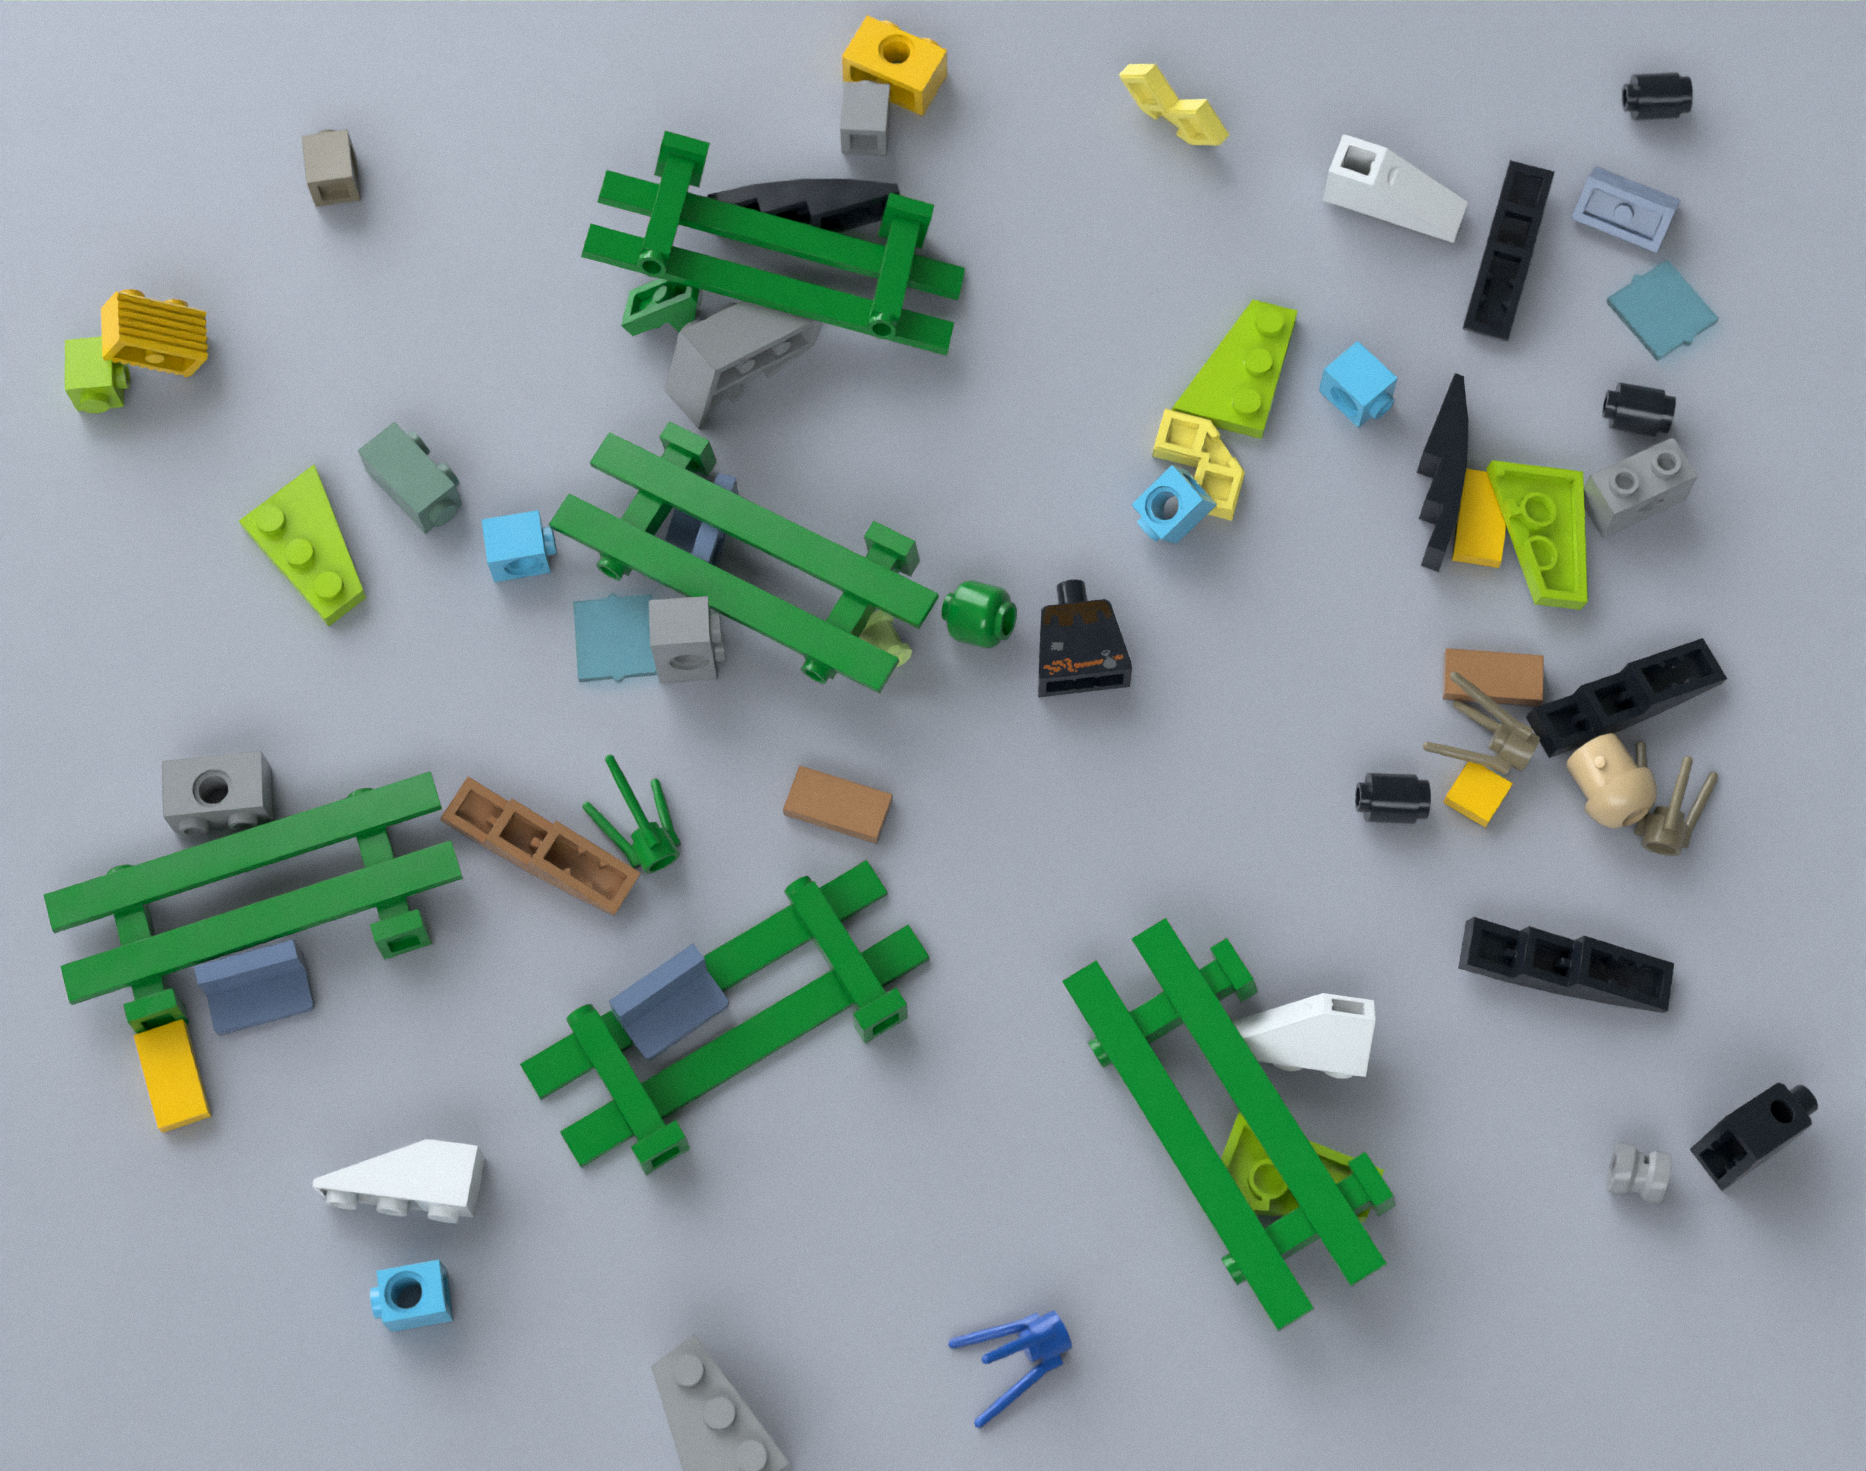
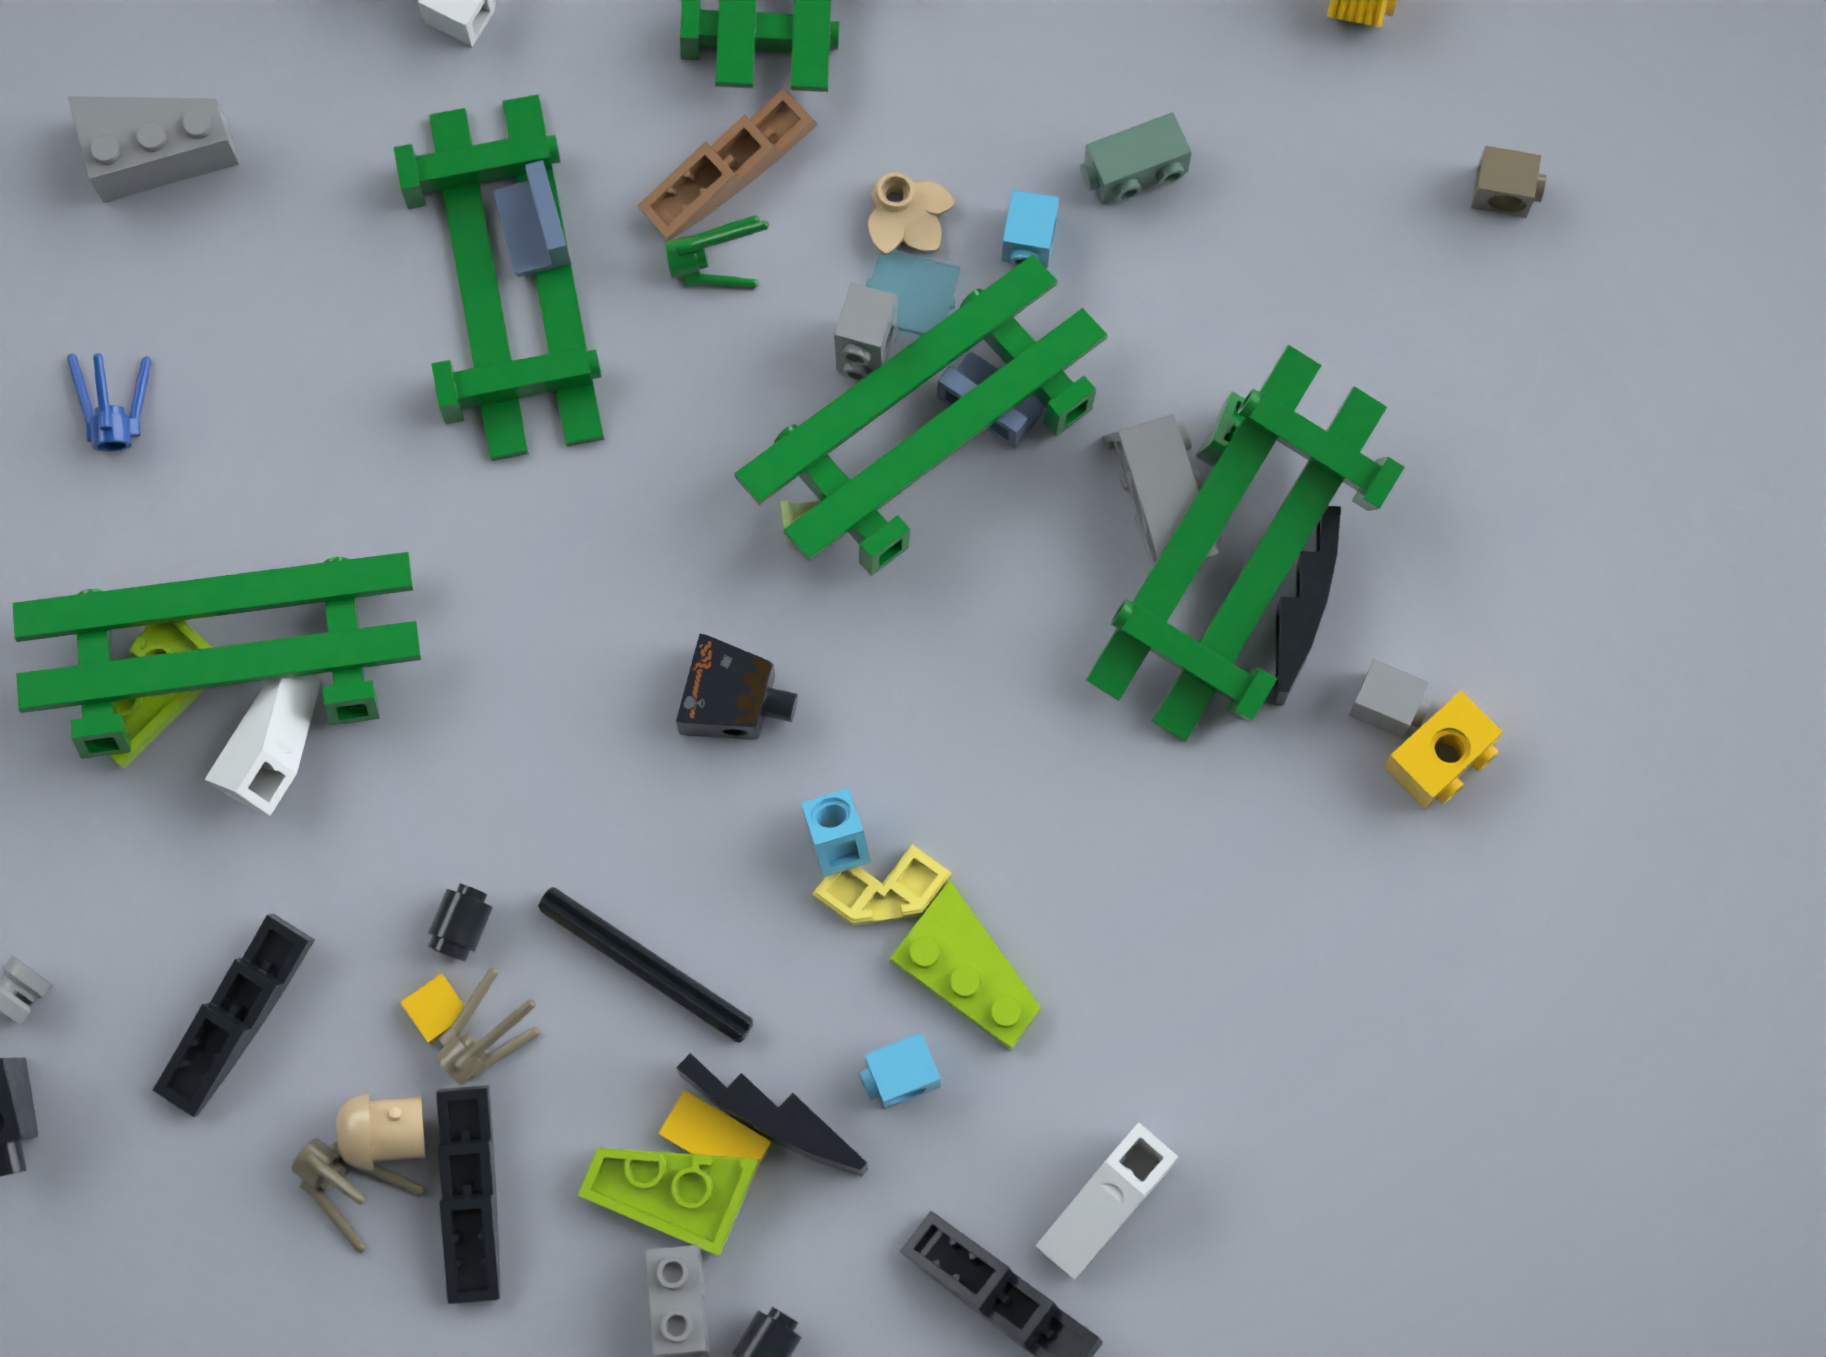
camera: 110 degrees right, 5 degrees up
(307, 546) = (1106, 56): lime wing -> none
(538, 660) = (912, 219): none -> tan plate
(838, 804) = (665, 429): medium nougat tile -> none
(979, 614) = (796, 612): green head -> none
(1156, 98) = (1279, 1018): light yellow tile -> none
(1356, 631) = (645, 964): none -> black axle
(1500, 675) = (545, 1075): medium nougat tile -> none

